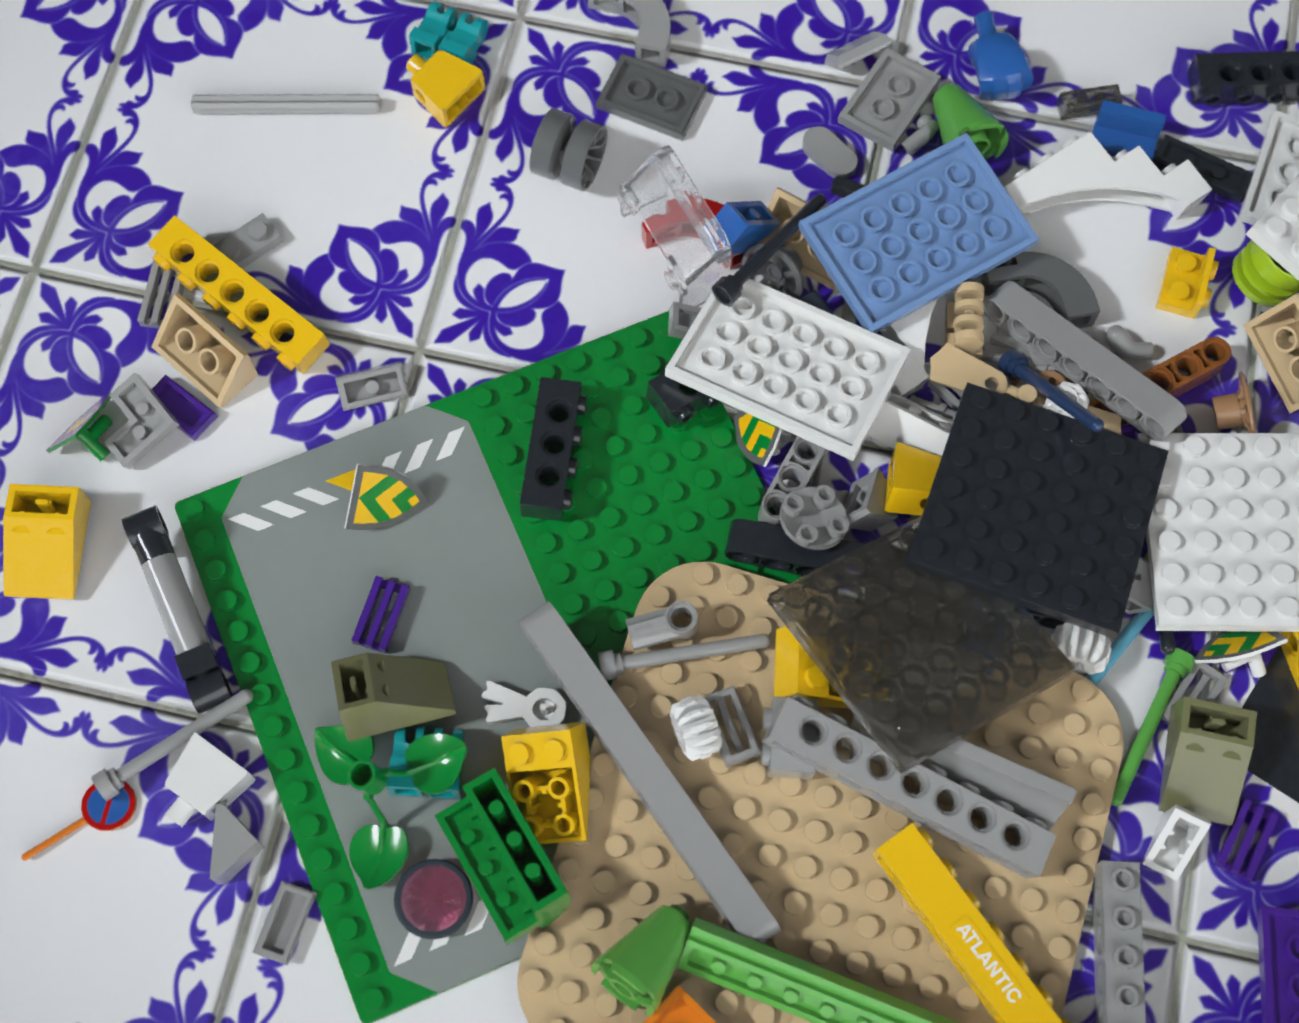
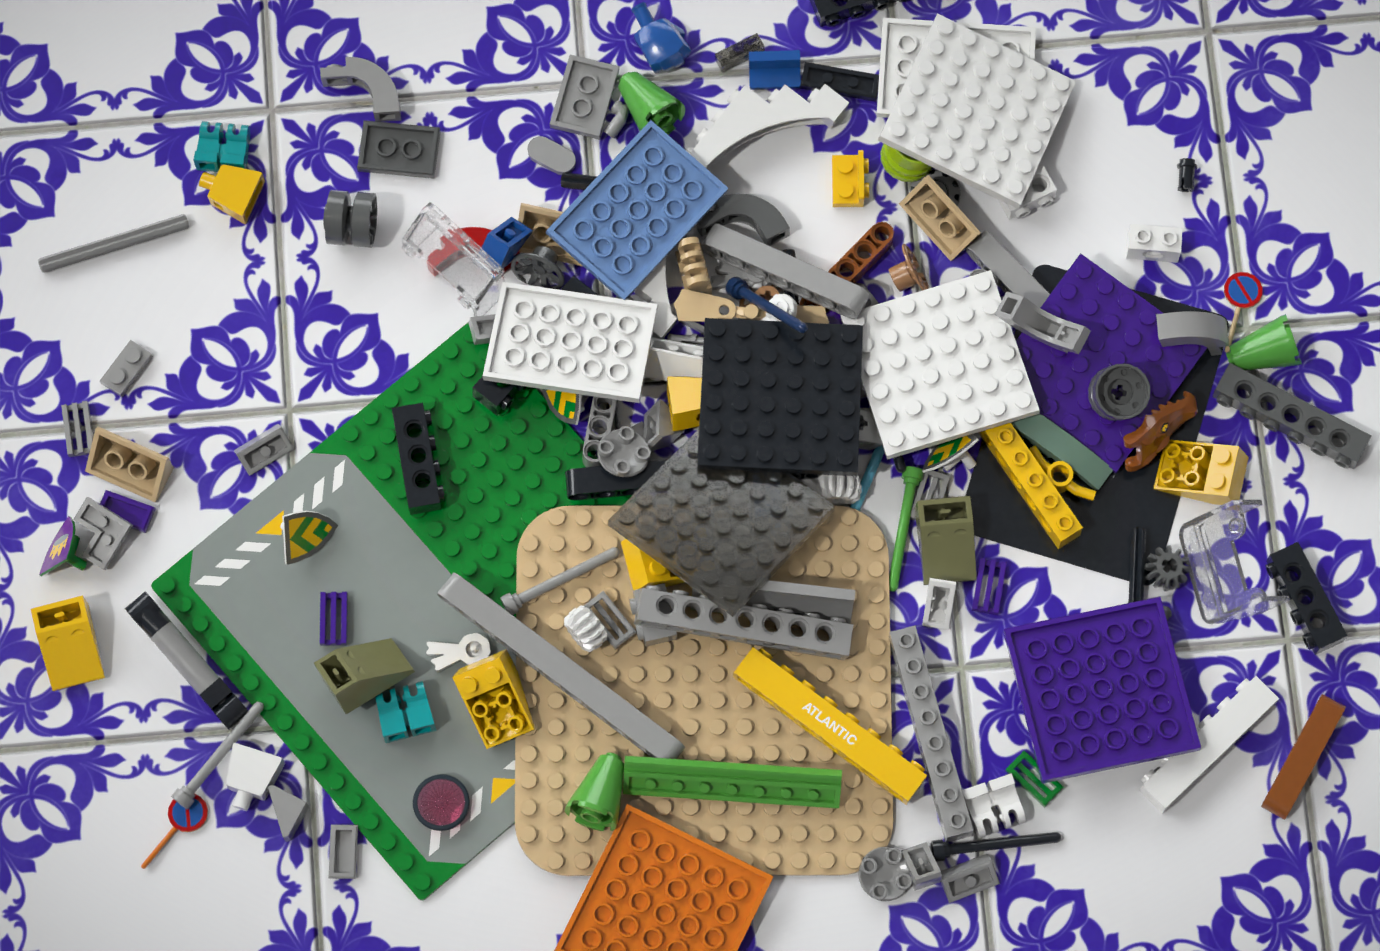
camera: 15 degrees left, 5 degrees up
(179, 239) = (79, 382): yellow brick -> none
(433, 761) = (411, 710): green plant -> none
(503, 858) = (481, 758): green brick -> none
(658, 628) = (537, 567): light grey piece -> none
(728, 289) = (510, 298): black piece -> none
(857, 50) = (547, 62): light grey tile -> none
(1125, 346) = (816, 246): light grey arm -> none

